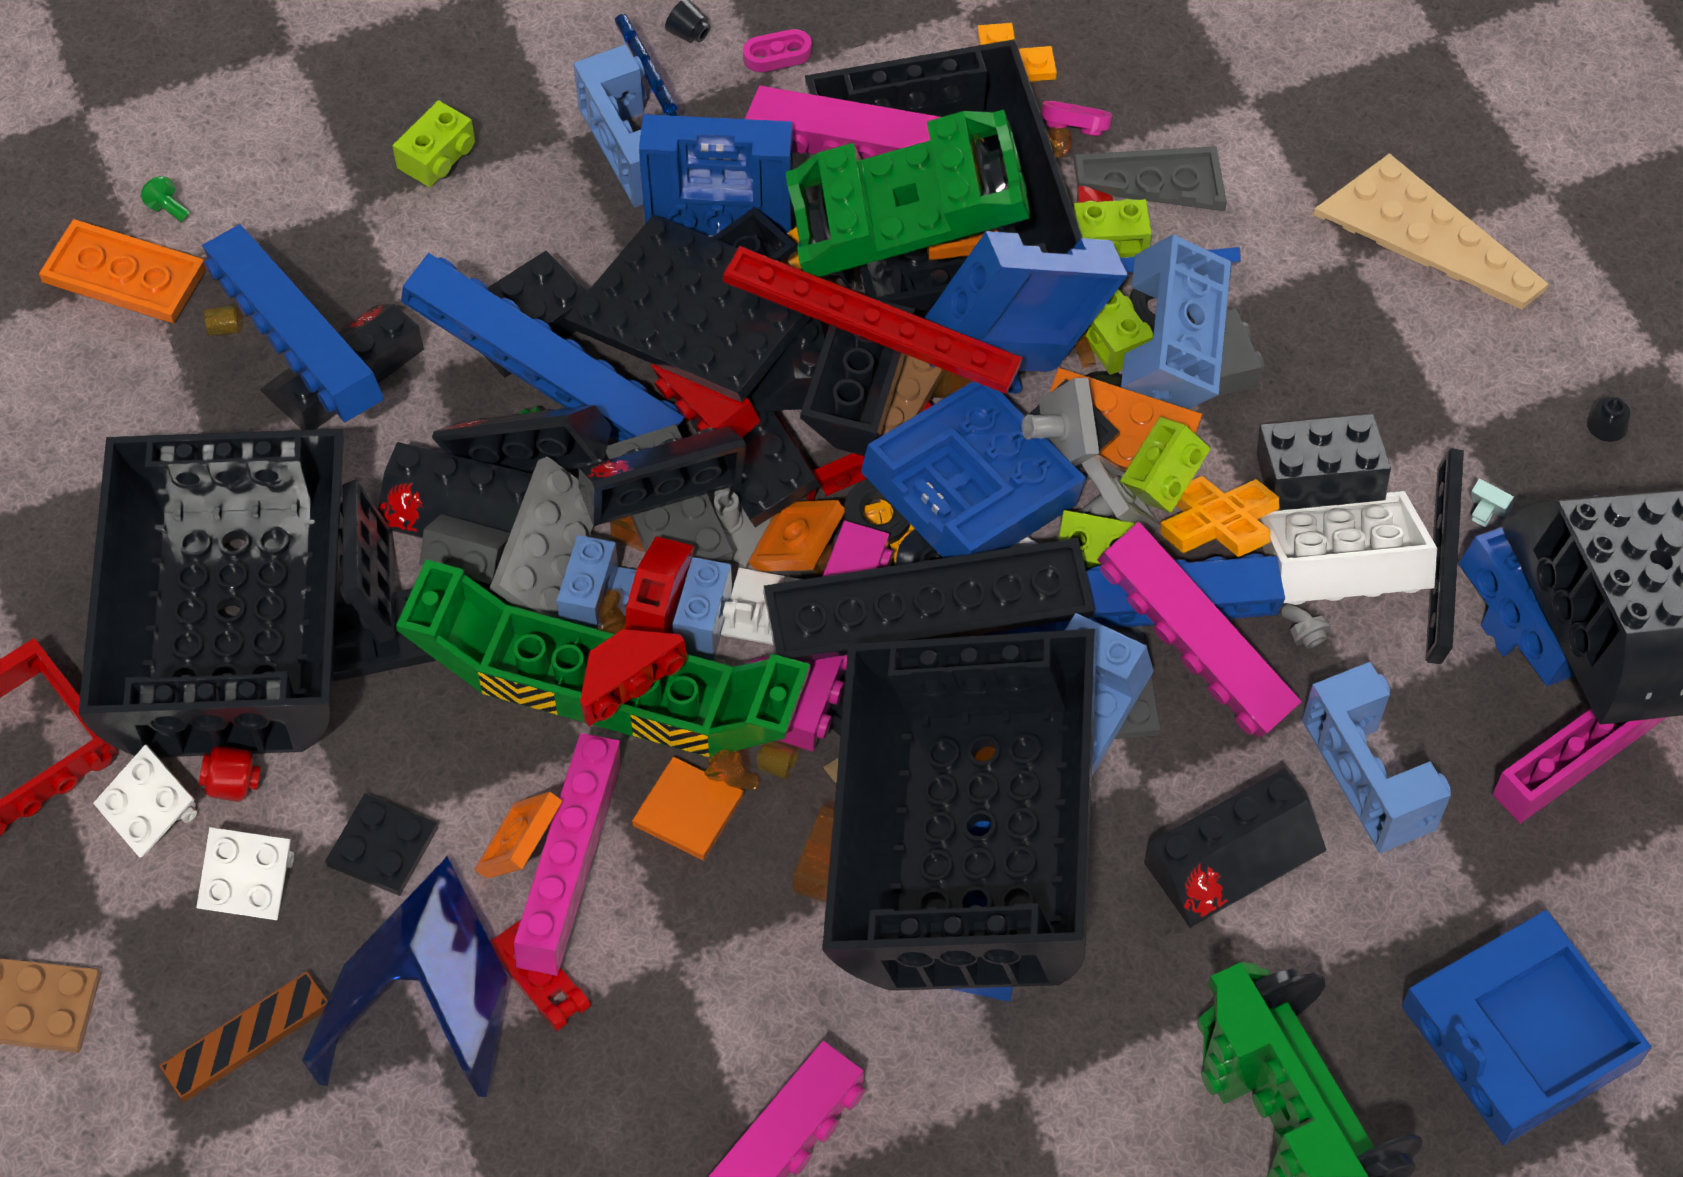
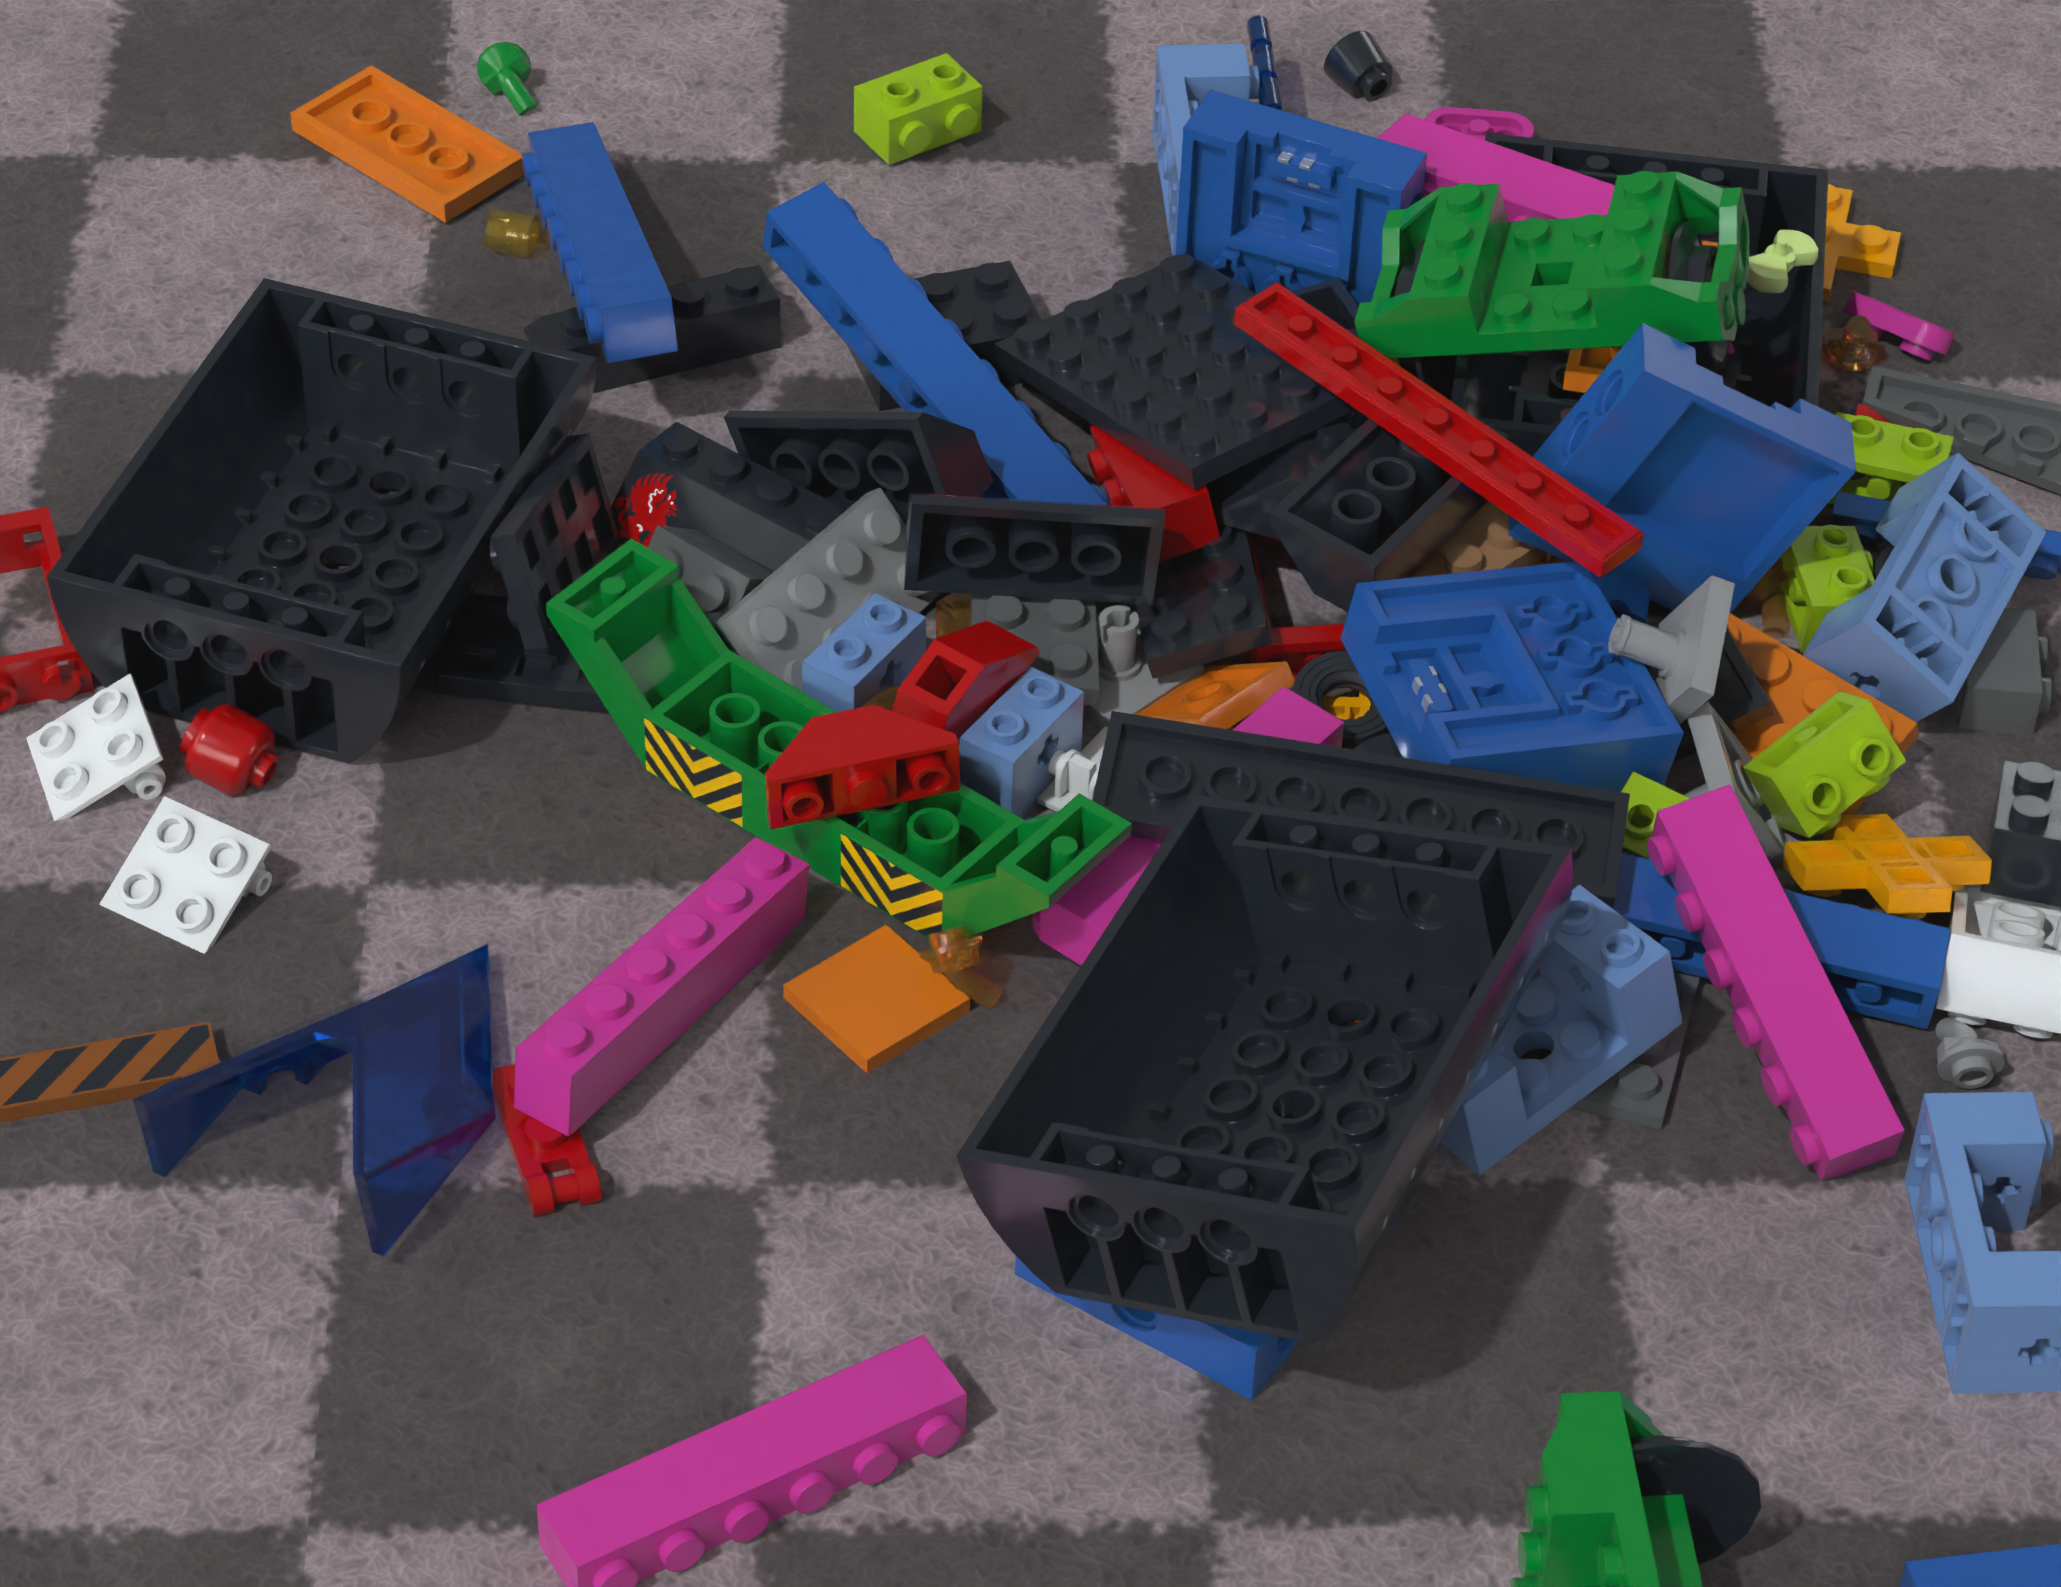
camera: 20 degrees right, 15 degrees down
(382, 844) = (402, 906): black plate -> none
(518, 835) = (600, 938): orange tile -> none
(775, 759) = (1036, 970): clear yellow hose -> none
(1019, 110) = (1770, 269): none -> yellowish green piece
(1235, 847) = (1711, 1299): black slope -> none

